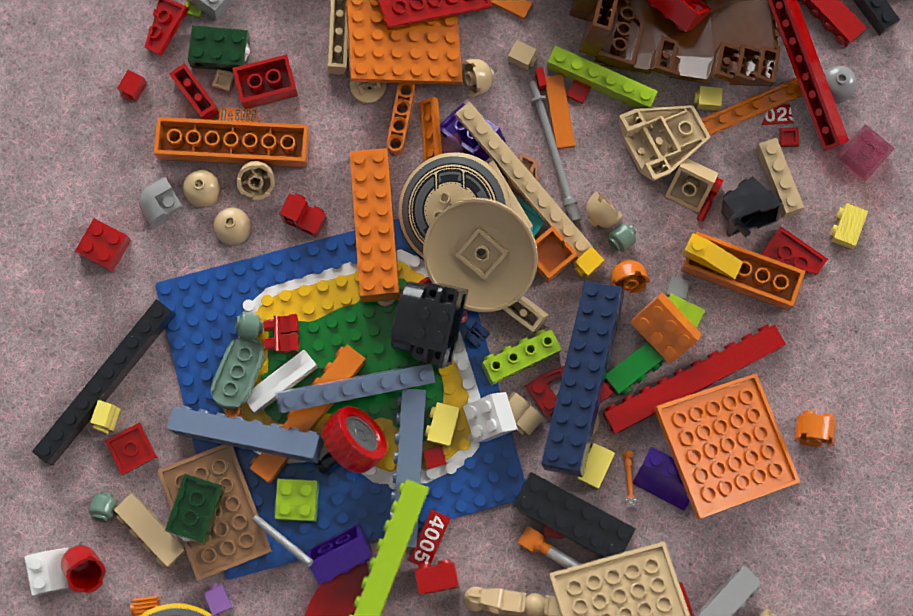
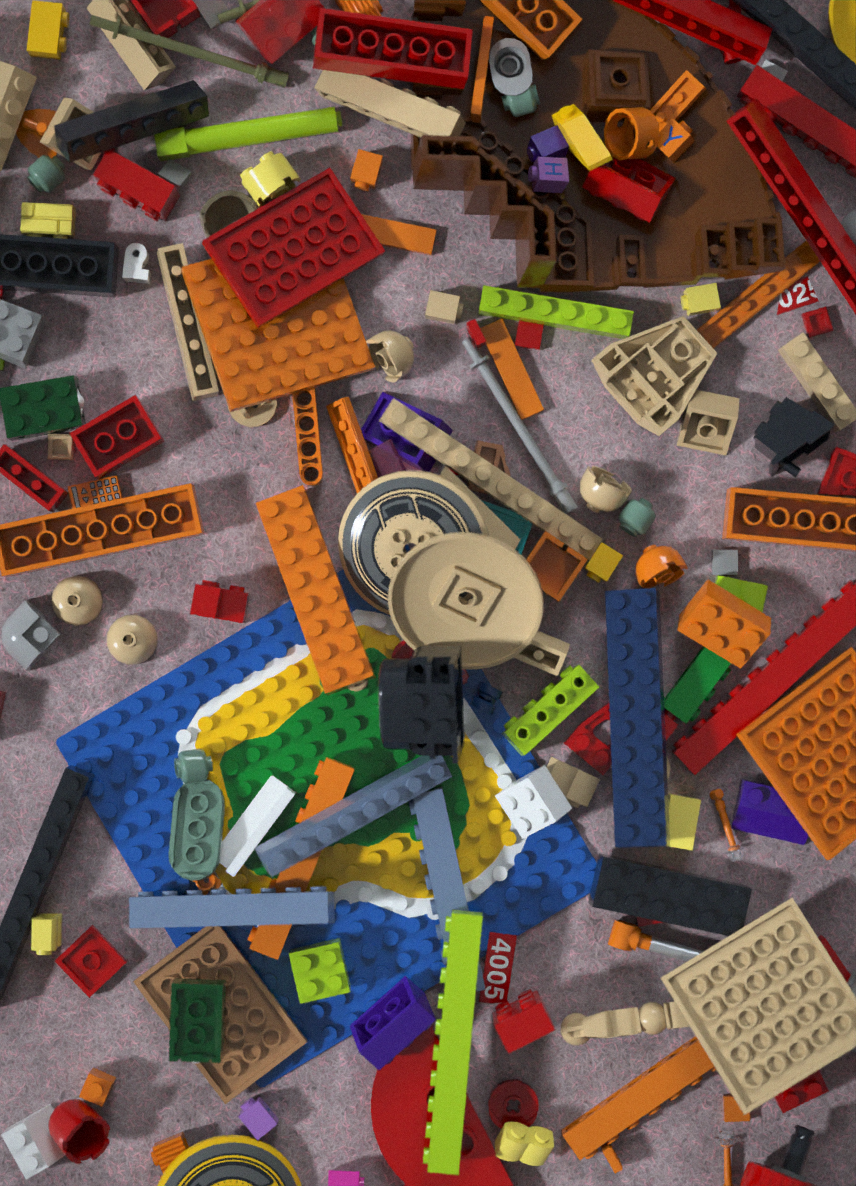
camera: 20 degrees left, 10 degrees up
(102, 507) = (78, 1043): sand green head -> none
(106, 542) = (97, 1087): none -> orange brick
(150, 530) = (145, 1055): tan brick -> none
(256, 180) = (144, 573): tan cylinder -> none
(282, 540) = (318, 1029): light grey bar -> none
(285, 334) = (243, 775): red hips -> none
(352, 441) = (370, 882): red wheel -> none
(434, 457) = (476, 867): red tile -> none
(442, 424) = (475, 824): light yellow brick -> none
(708, 202) = (735, 440): red piece -> none
(712, 256) = (760, 517): yellow slope -> none

